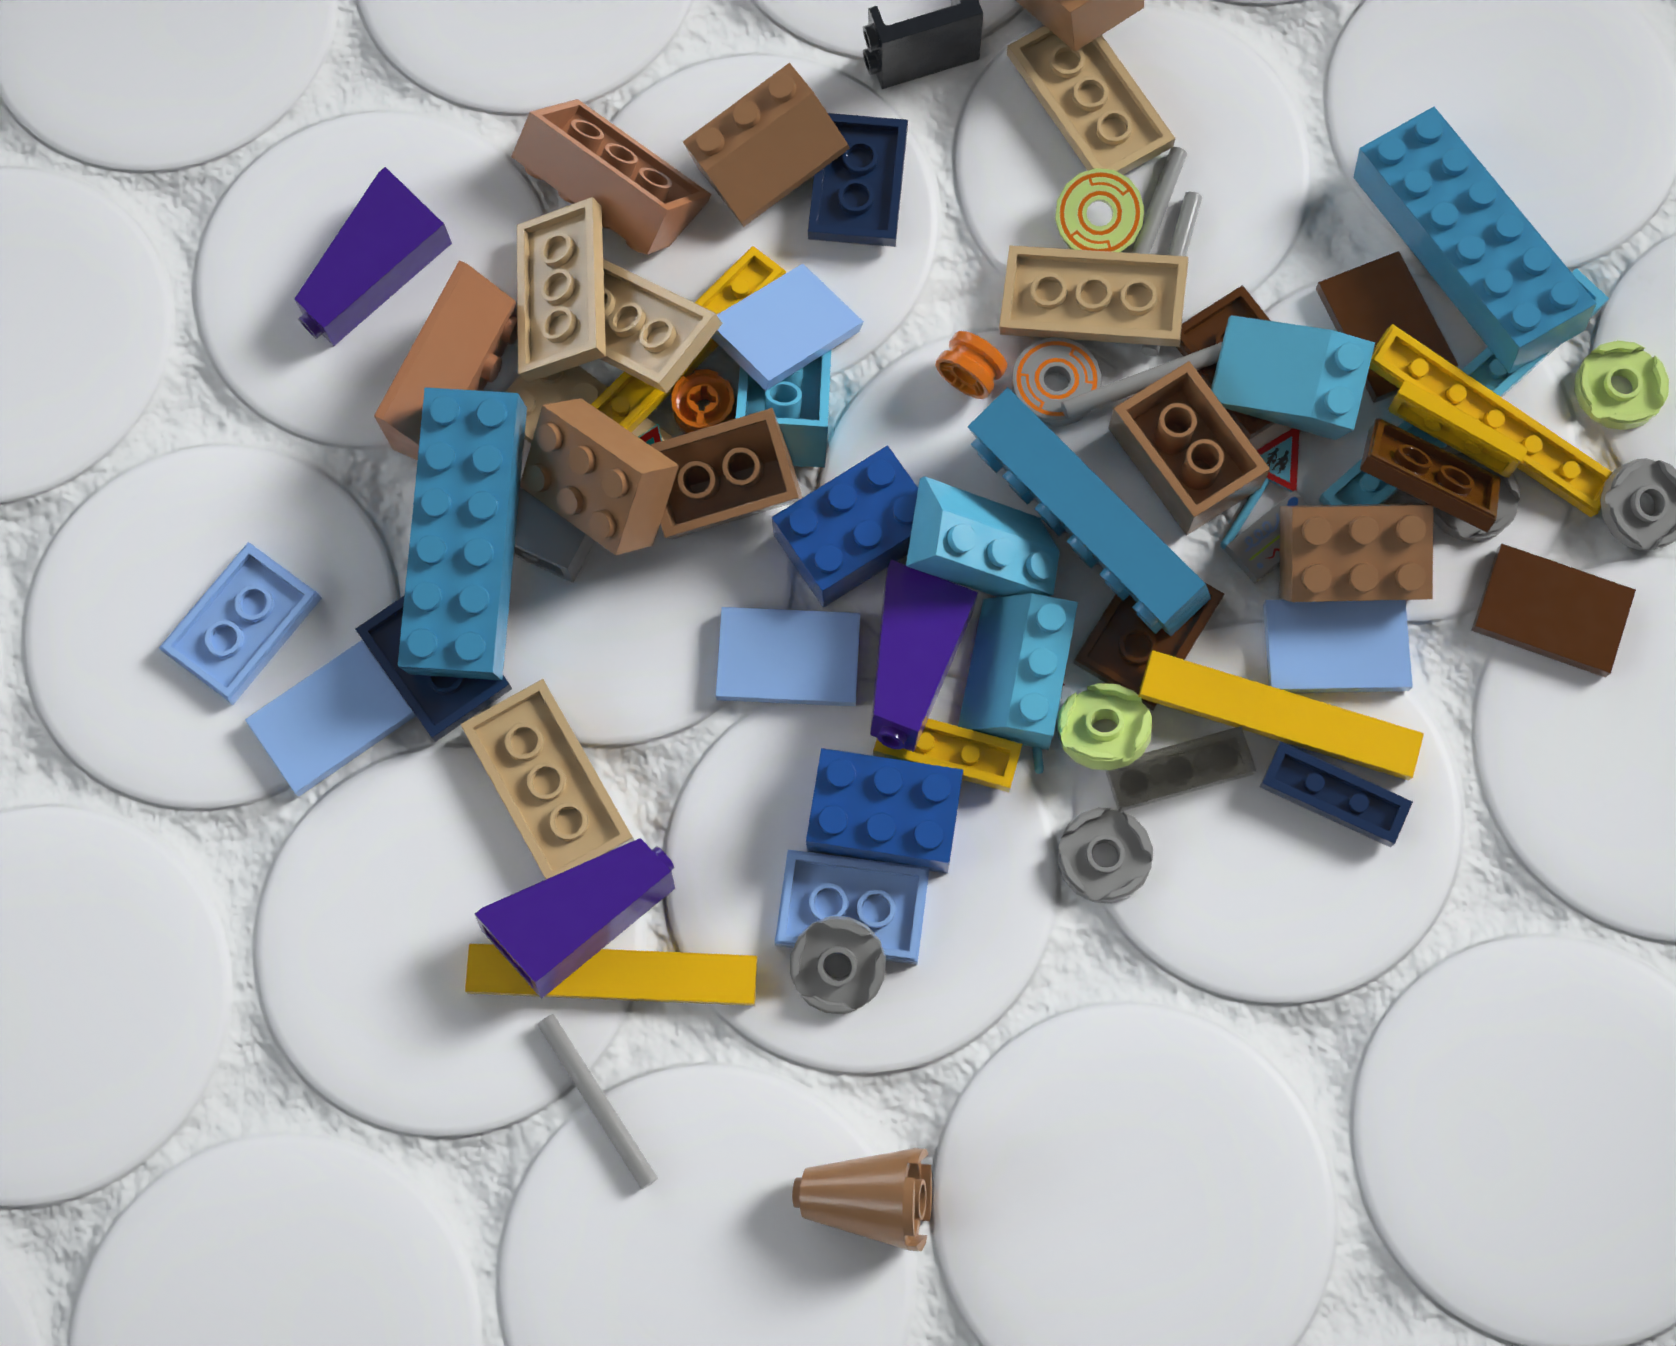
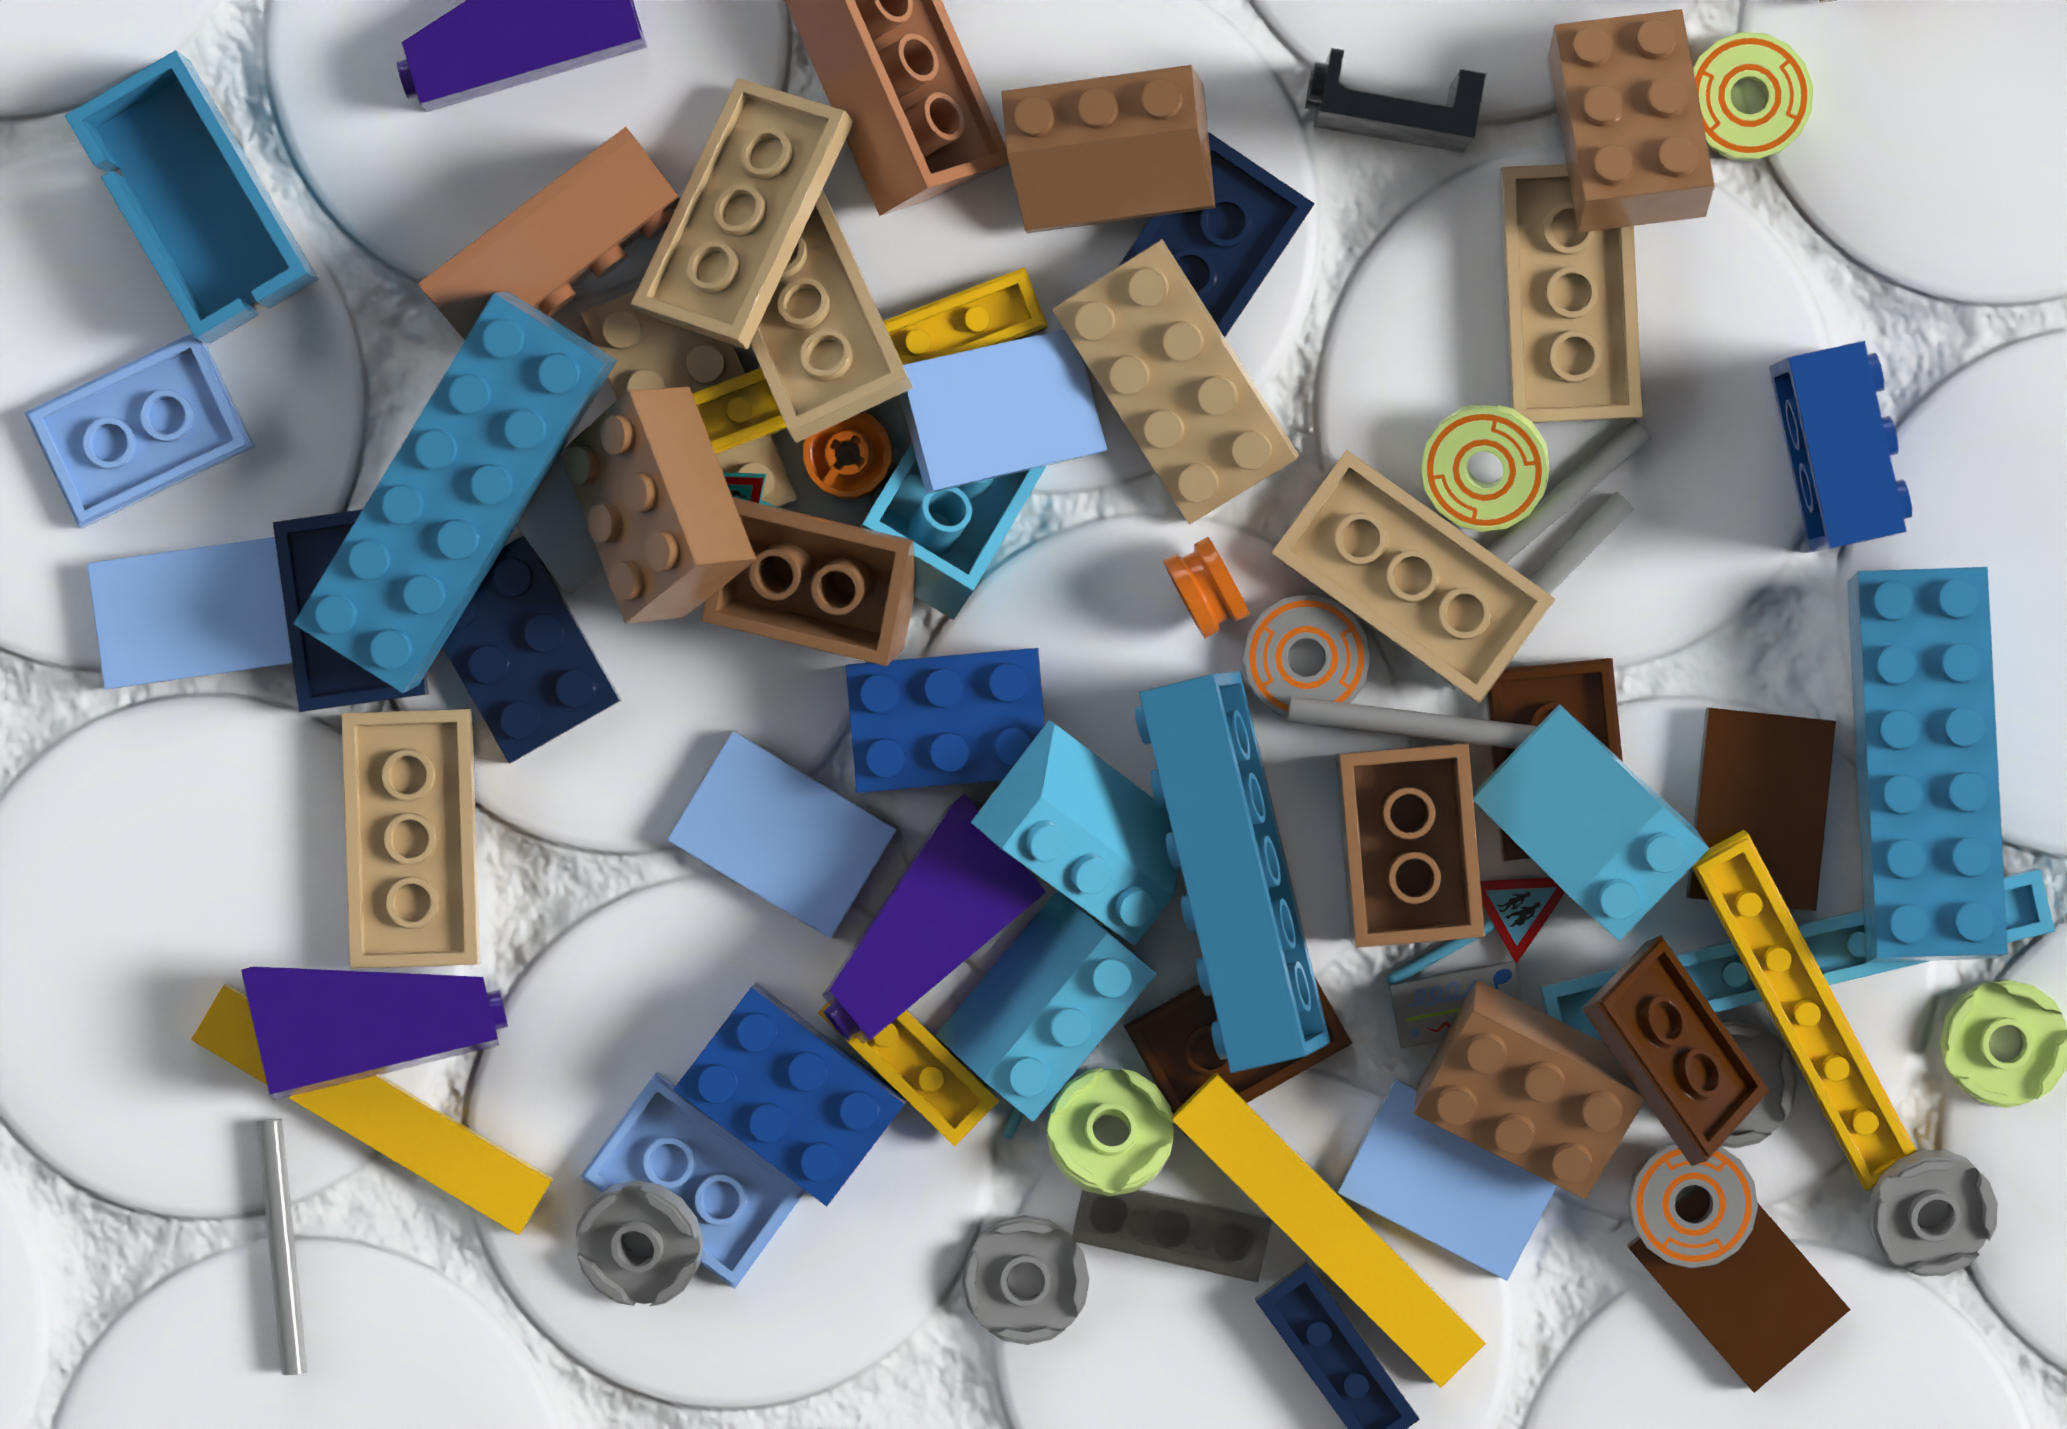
camera: 25 degrees right, 15 degrees up
(205, 456) = (191, 197): none -> dark azure piece
(564, 632) = (526, 656): none -> dark blue plate
(882, 258) = (1175, 382): none -> tan plate
(1302, 89) = (1840, 446): none -> blue brick
(1457, 429) = (1748, 1006): yellow tile -> none
(1511, 551) = (1697, 1241): none -> light grey tile

